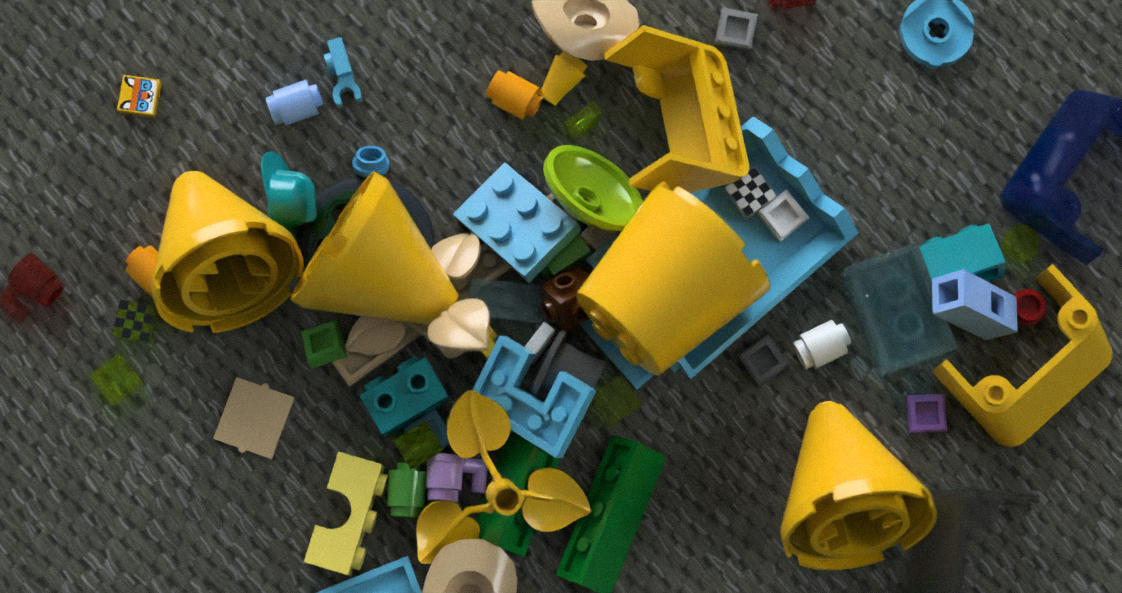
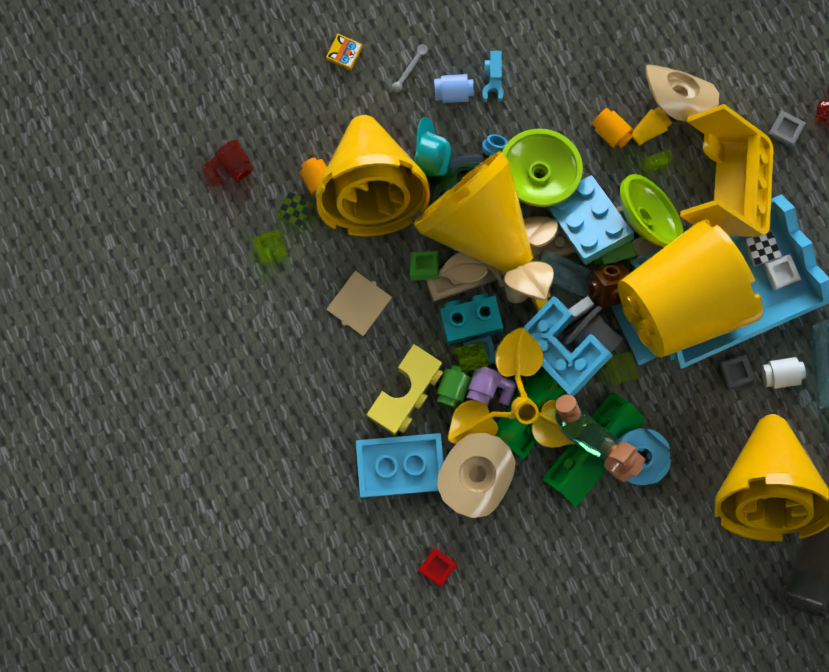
camera: 20 degrees right, 0 degrees up
(239, 64) = (421, 51): none -> light grey hinge
(438, 152) = (547, 154): none -> lime dish
(595, 501) = (580, 428): none -> piece
(693, 496) = (657, 455): none -> medium azure plate

